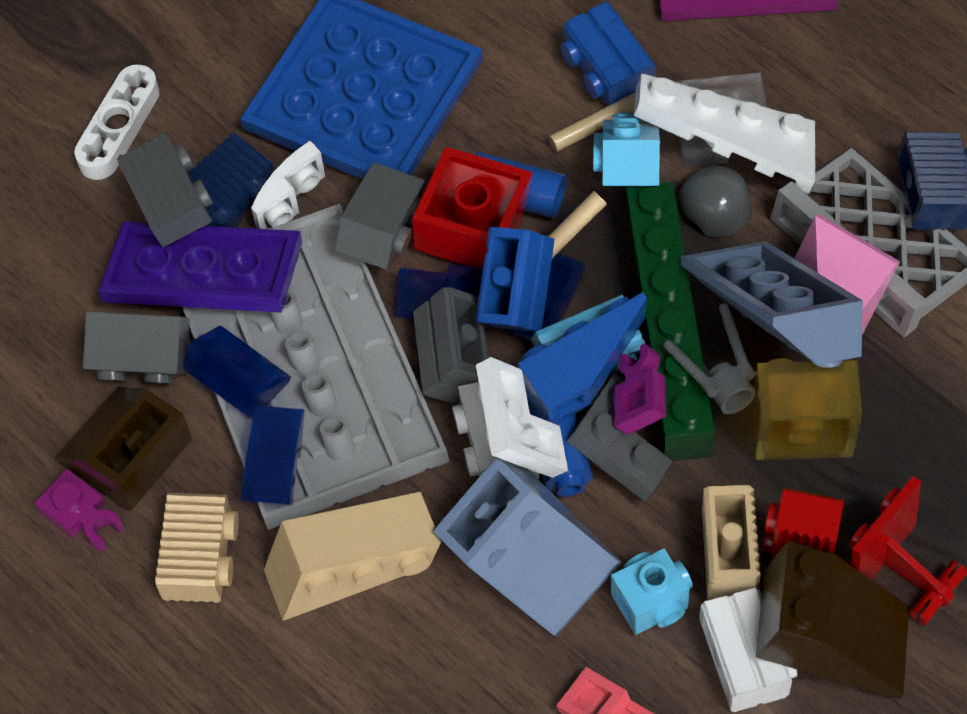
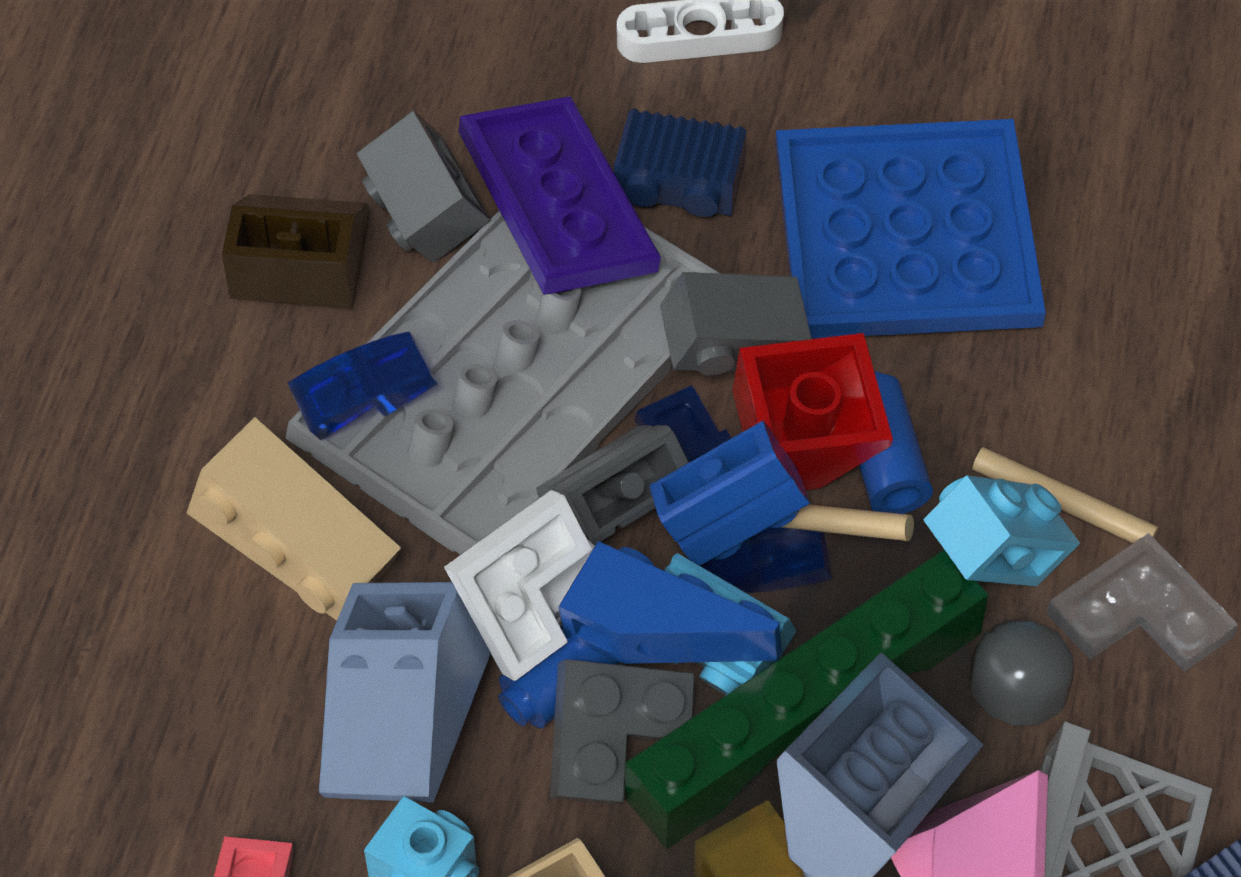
camera: 55 degrees right, 5 degrees down
(77, 506) = (197, 252): magenta plate -> none
(165, 190) = (613, 98): dark grey brick -> none
(195, 547) = (214, 375): tan brick -> none
(234, 370) = (452, 294): clear blue slope -> none
(296, 175) = (702, 218): white slope -> none
(605, 53) = (1139, 445): blue brick -> none
(642, 394) = (659, 703): magenta plate -> none
(724, 382) = (736, 788): dark grey plant -> none
(730, 125) = (1128, 645): white wing -> none

